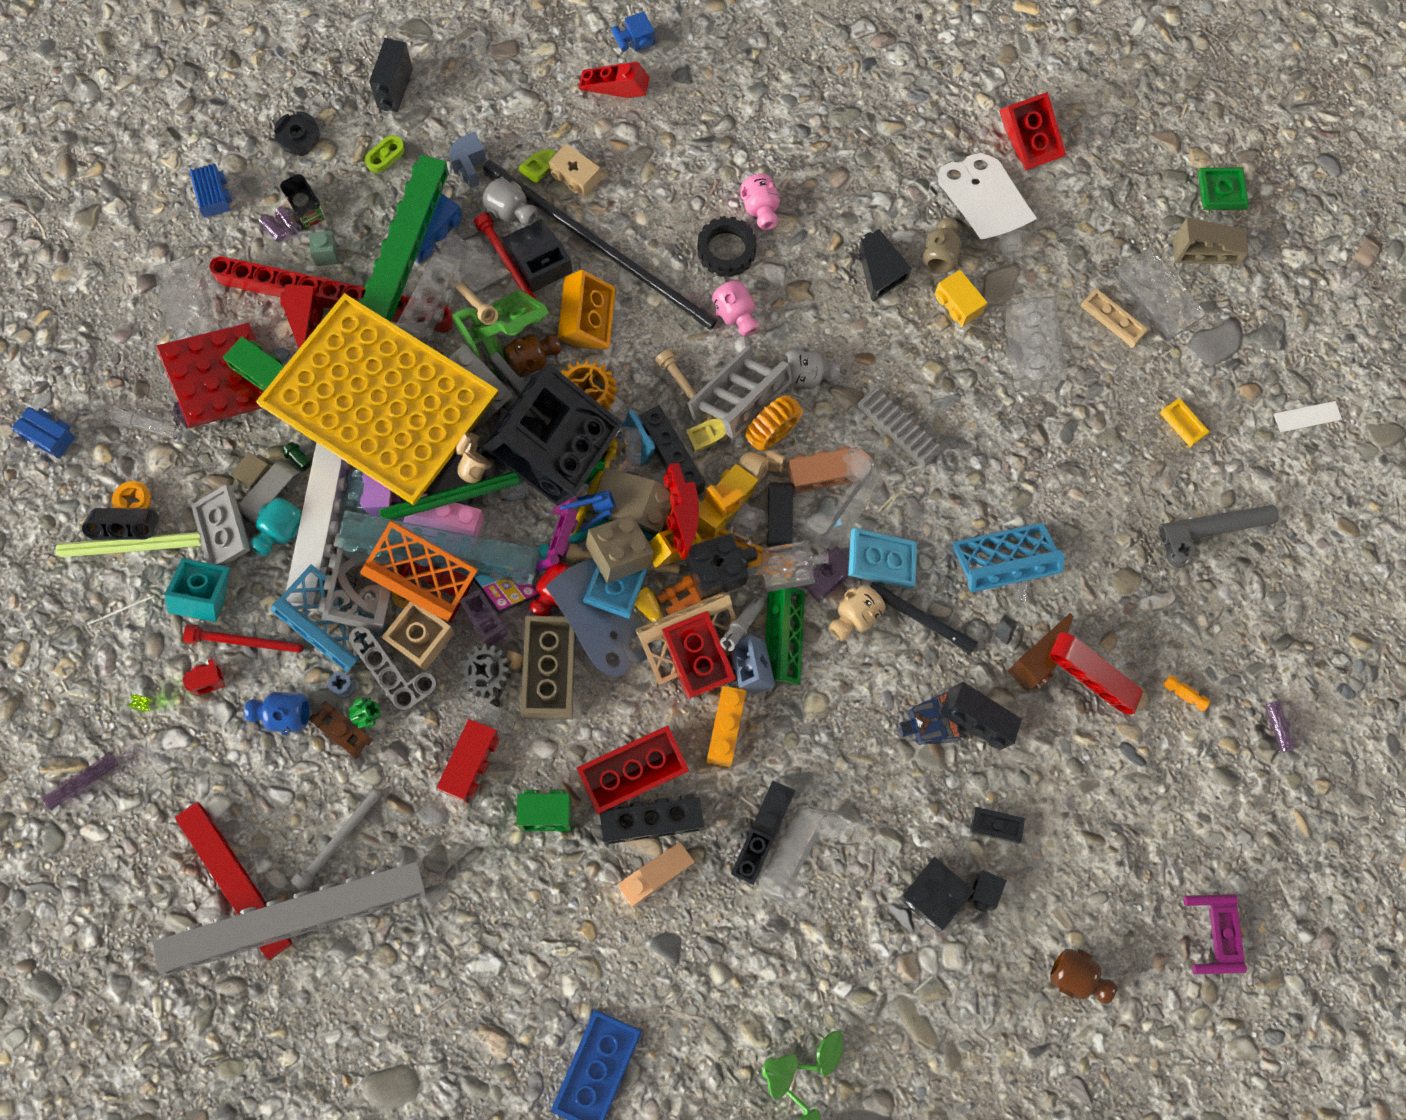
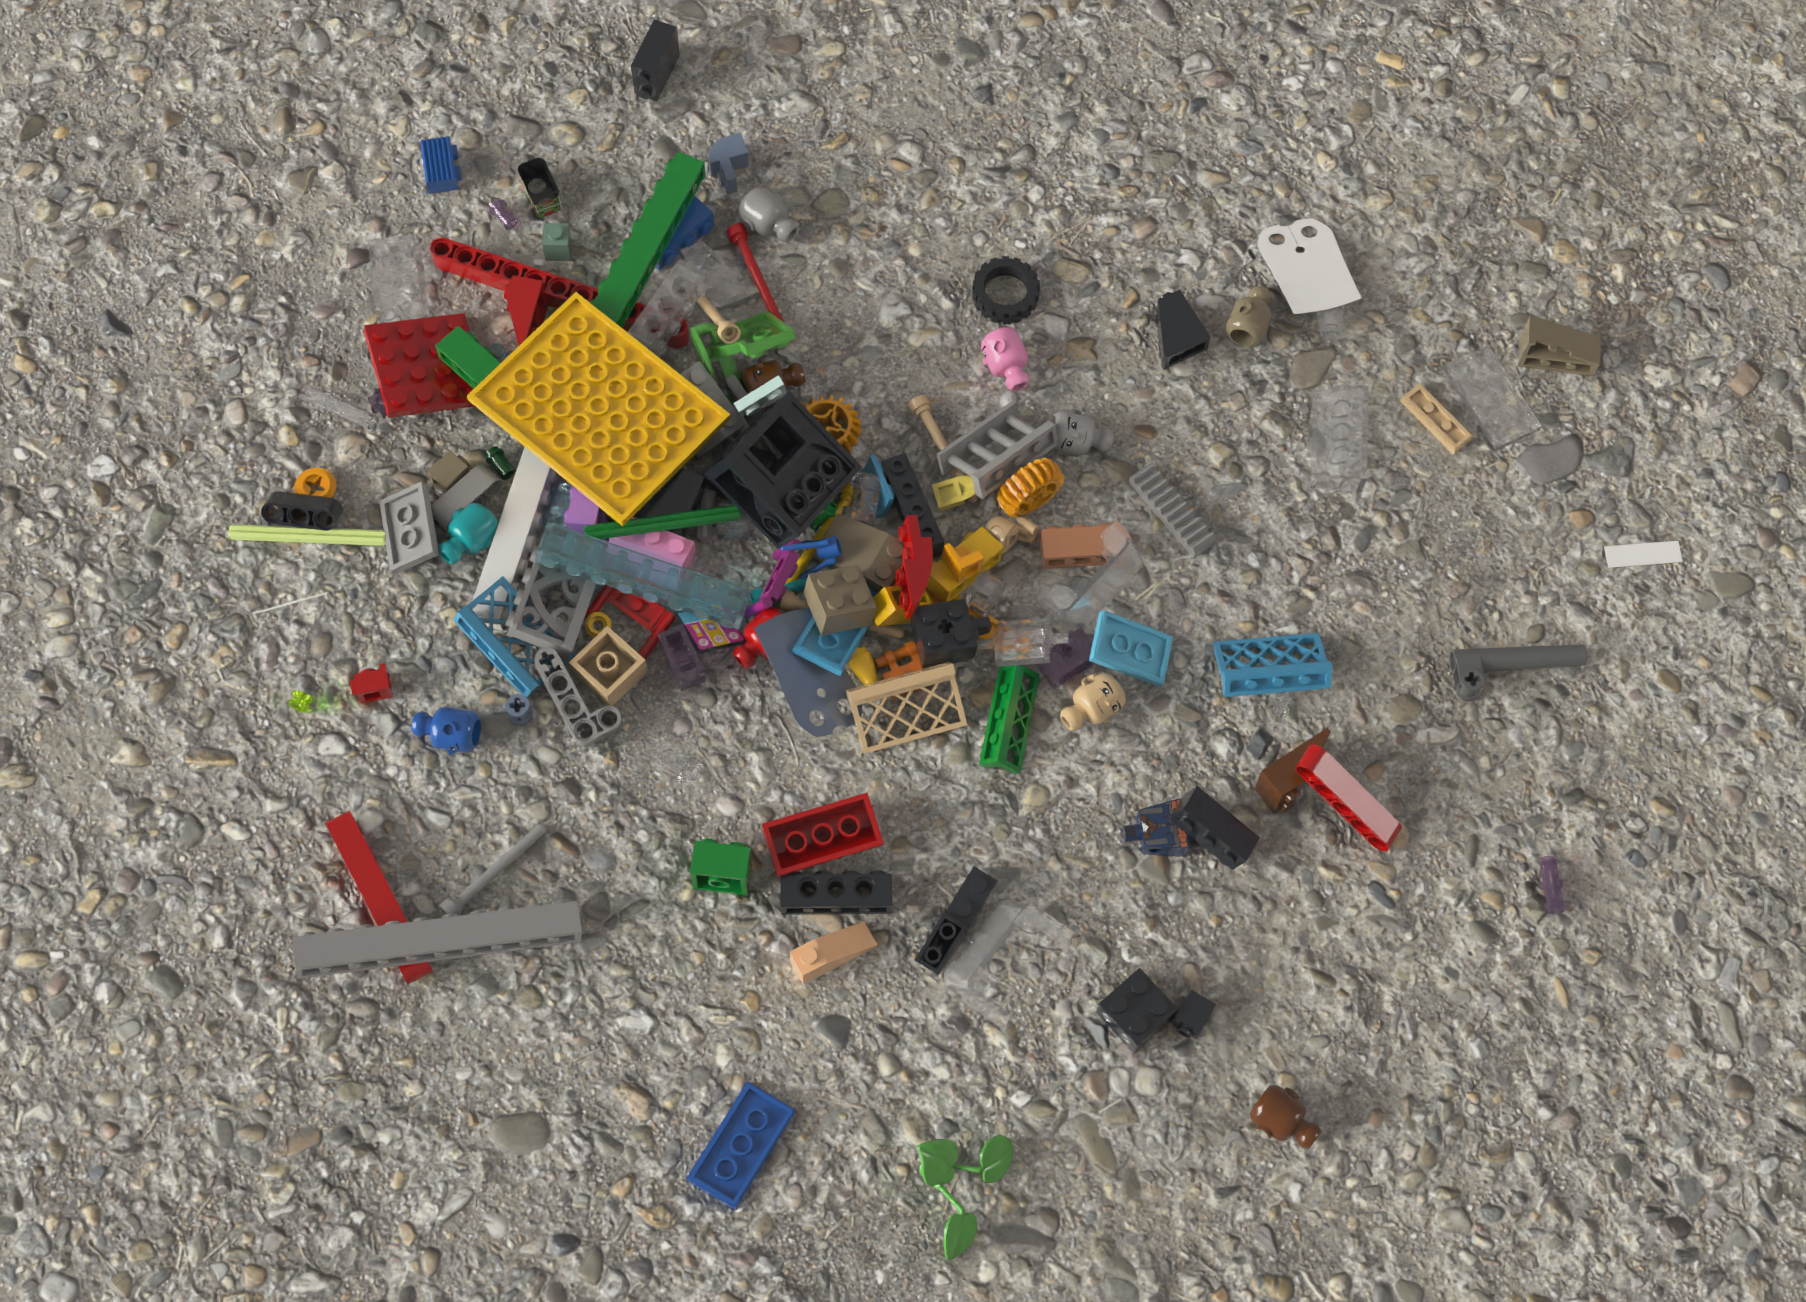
camera: 10 degrees right, 5 degrees down
(44, 432) = (230, 404): blue brick -> none
(70, 787) = (228, 774): clear purple pin -> none
(195, 634) = (367, 637): red piece -> none
(197, 590) = (376, 590): teal slope -> none
(285, 215) = (518, 202): clear purple pin -> none
(297, 144) = (546, 124): black plate -> none
(340, 729) = (511, 757): reddish brown plate -> none
(364, 712) = (539, 741): green gear -> none
(383, 154) = (636, 147): lime plate -> none
(404, 586) = (605, 614): orange fence -> none
(468, 761) = (645, 806): red brick -> none
(472, 463) = (691, 490): tan piece -> none
(495, 668) = (688, 707): dark grey gear -> none
(517, 662) = (707, 709): tan hinge -> none
(528, 367) = (760, 397): none -> light aqua wing
(537, 165) = (806, 177): lime plate -> none
(538, 255) = (793, 275): black slope -> none
(548, 668) = (745, 719): dark tan brick -> none
(574, 170) = (846, 187): tan brick -> none
(586, 311) = (838, 343): light orange slope -> none
(618, 80) = (906, 92): red slope -> none
(637, 31) = (938, 41): blue brick -> none
(697, 313) = (963, 360): black piece -> none
(698, 655) = (910, 725): red slope -> none
(726, 726) = (931, 805): light orange brick -> none
(739, 628) = (960, 700): light grey pin -> none
(752, 665) = (969, 742): sand blue brick -> none
(761, 199) = (1051, 242): bright pink piece -> none
(780, 514) = (1023, 586): black beam -> none
(956, 637) = (1201, 744): black piece -> none
(960, 298) = (1262, 377): yellow brick -> none
(997, 825) = (1216, 948): black plate -> none
(1033, 131) = (1375, 200): red slope -> none
(1184, 422) = (1499, 543): yellow tile -> none
(1186, 693) = (1452, 836): light orange axle -> none
(1223, 188) = (1585, 289): green plate -> none
(1225, 934) = (1453, 1094): magenta plate -> none

